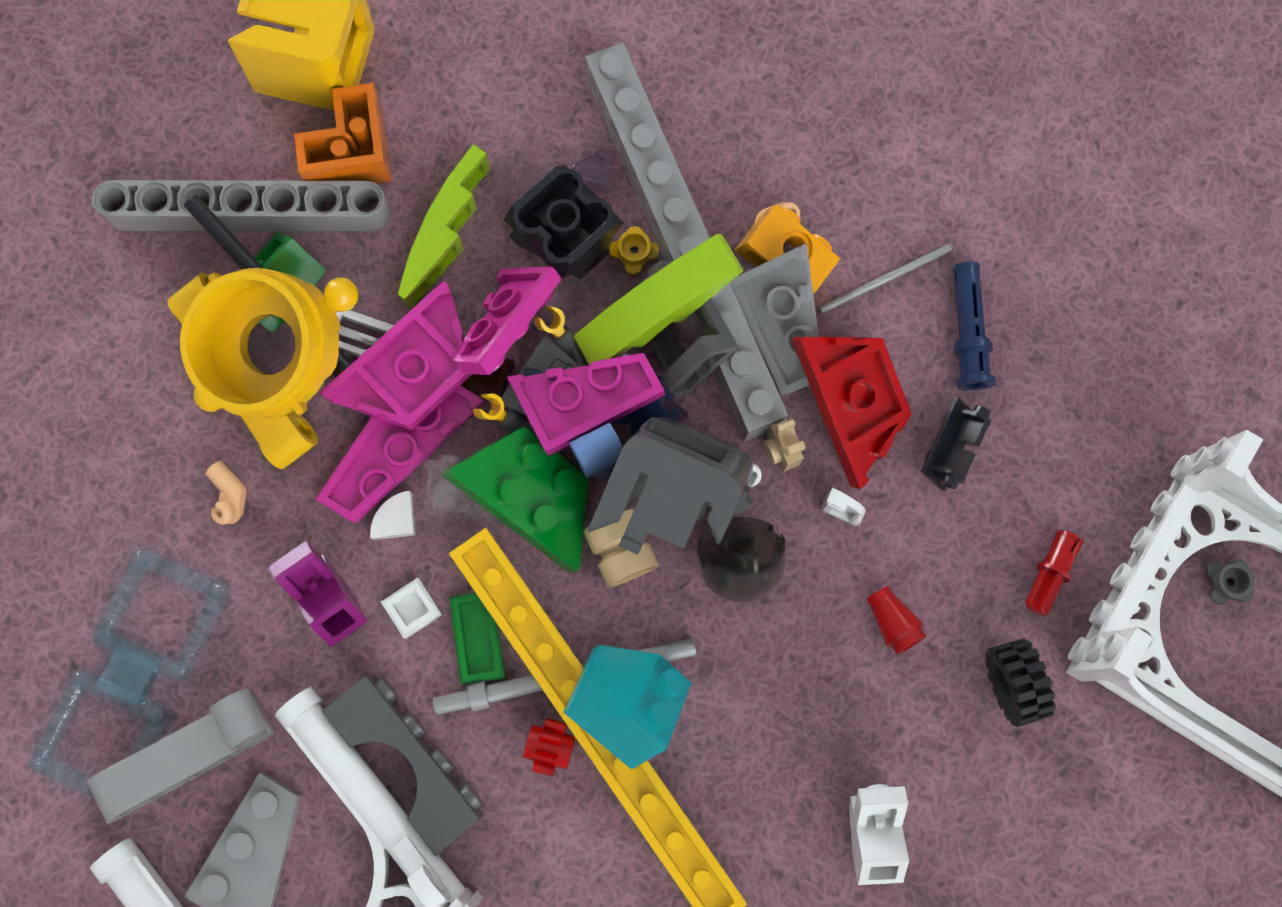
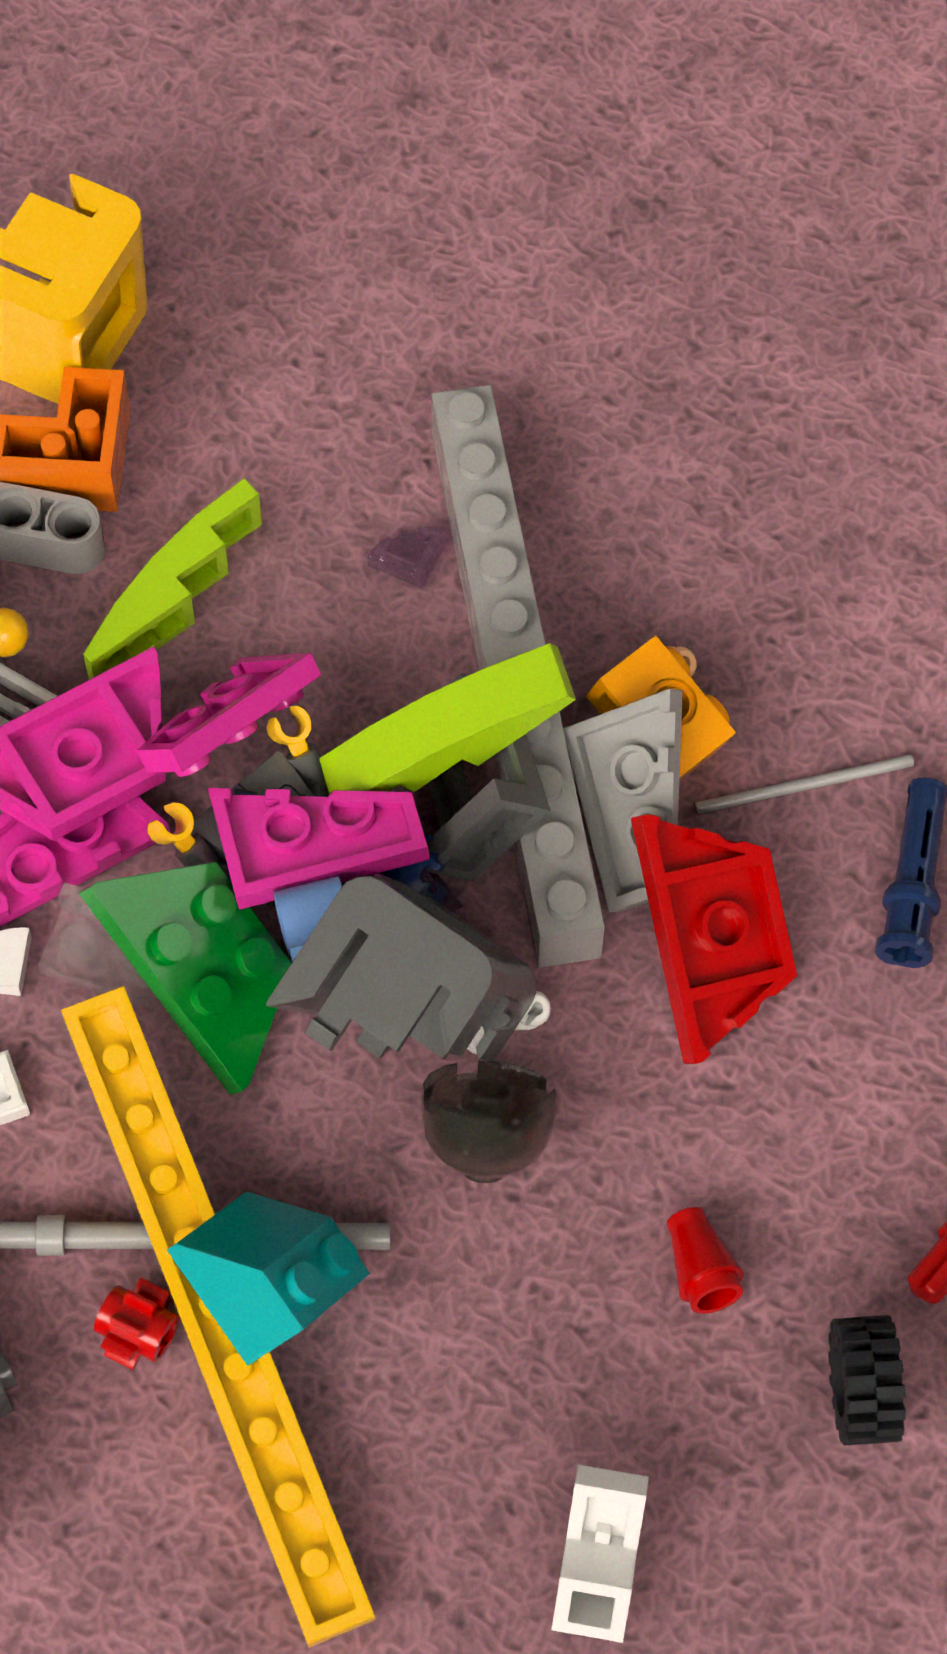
camera: 15 degrees right, 15 degrees down
(476, 640) = (70, 1156): green tile -> none
(493, 383) = (190, 792): dark brown tile -> none
(564, 223) = (345, 608): black piece -> none
(618, 563) = (315, 1082): tan wheel -> none
(634, 238) = (438, 653): yellow plate -> none
(784, 445) = (590, 974): tan plate -> none
(837, 505) = (661, 1083): white tile -> none
(947, 459) = (846, 1026): black hinge -> none

